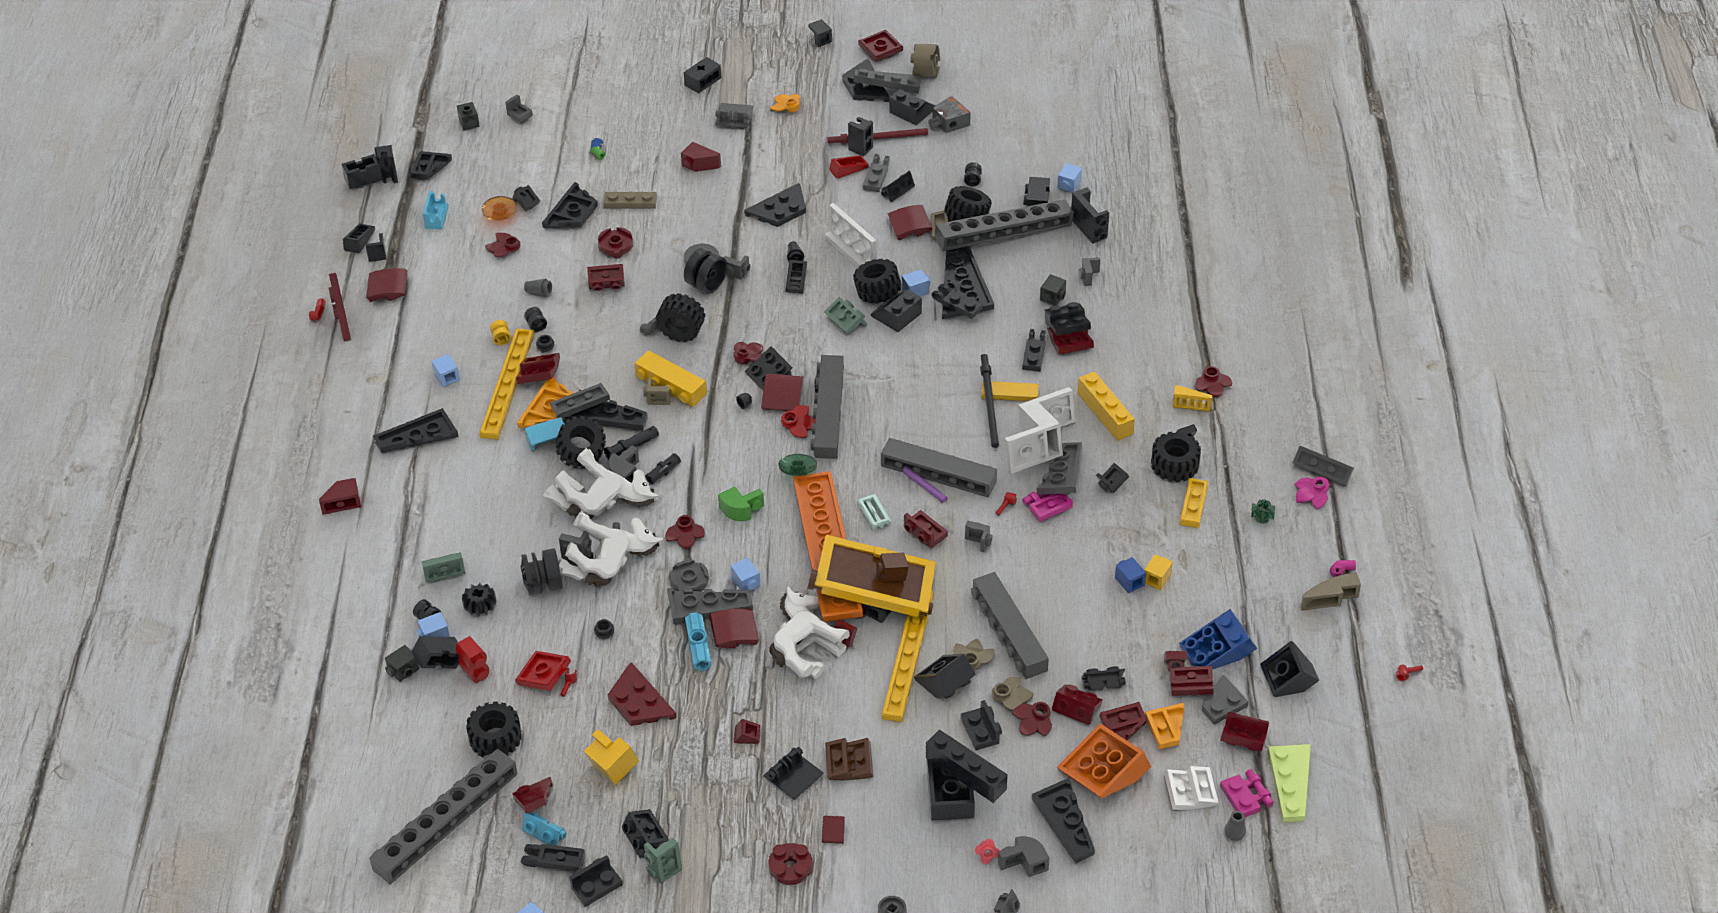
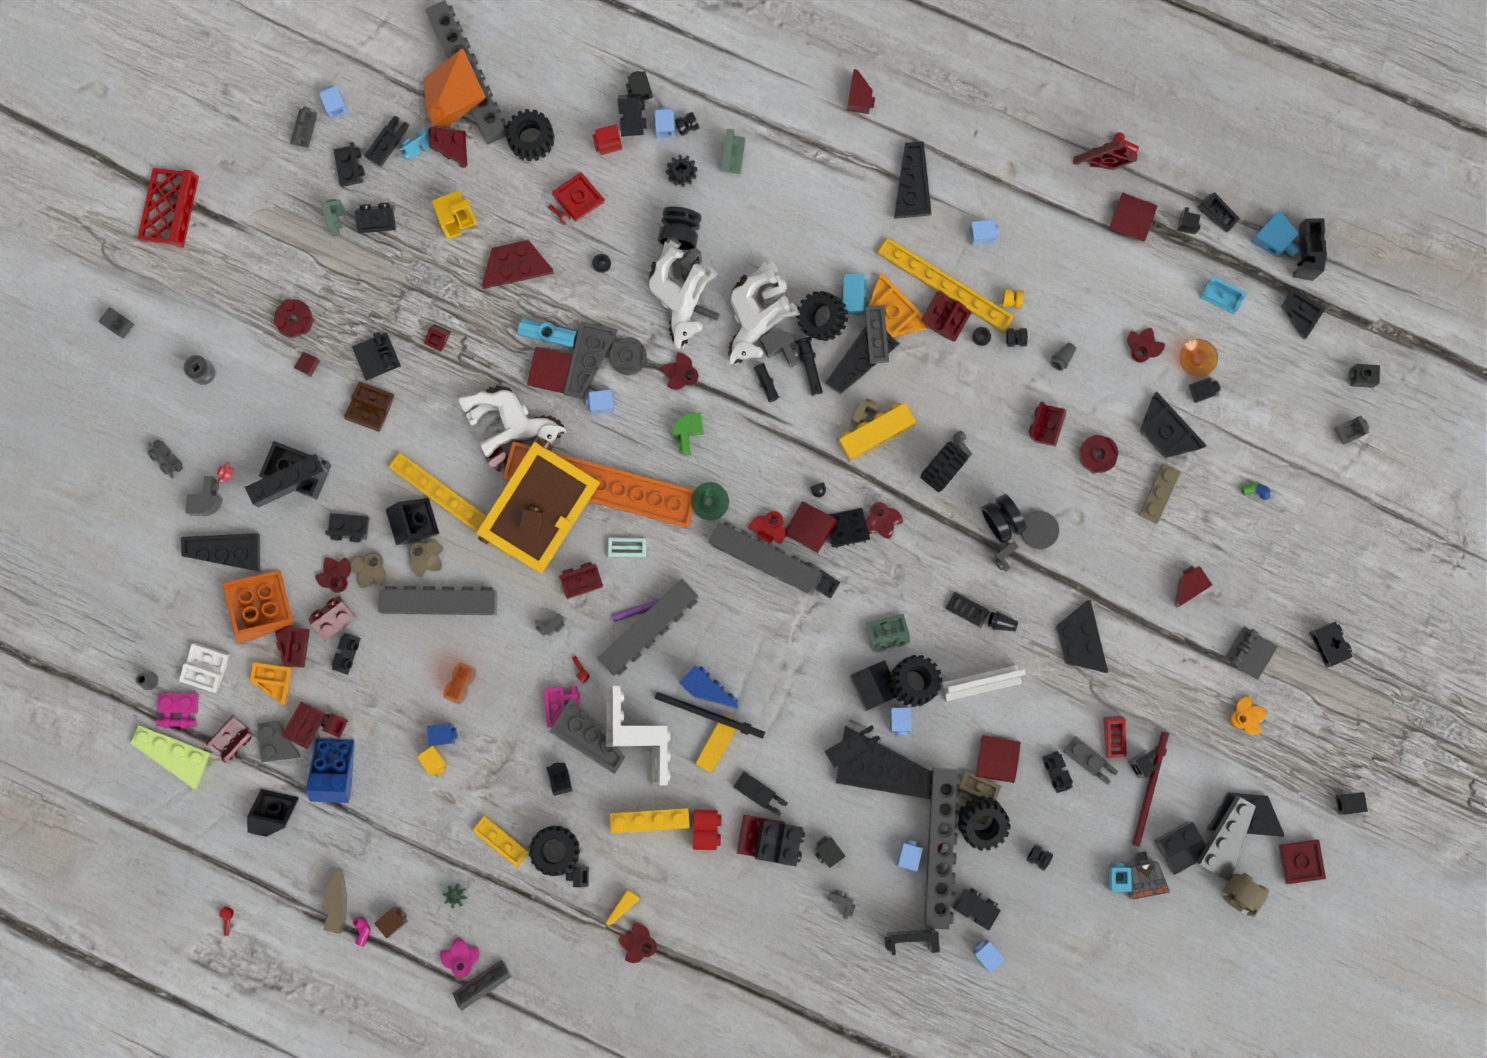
camera: 115 degrees right, 35 degrees up
(365, 196) = (1277, 236): none -> dark azure torso
(471, 810) = (452, 90): none -> orange slope
(959, 127) = (1125, 883): none -> medium azure brick
(967, 404) = (703, 688): none -> blue slope
(1023, 244) = (910, 855): none -> light blue brick
(1075, 575) = (457, 688): none -> clear orange brick
(1081, 367) = (705, 829): none -> red brick
(1317, 546) = (391, 921): none -> reddish brown brick

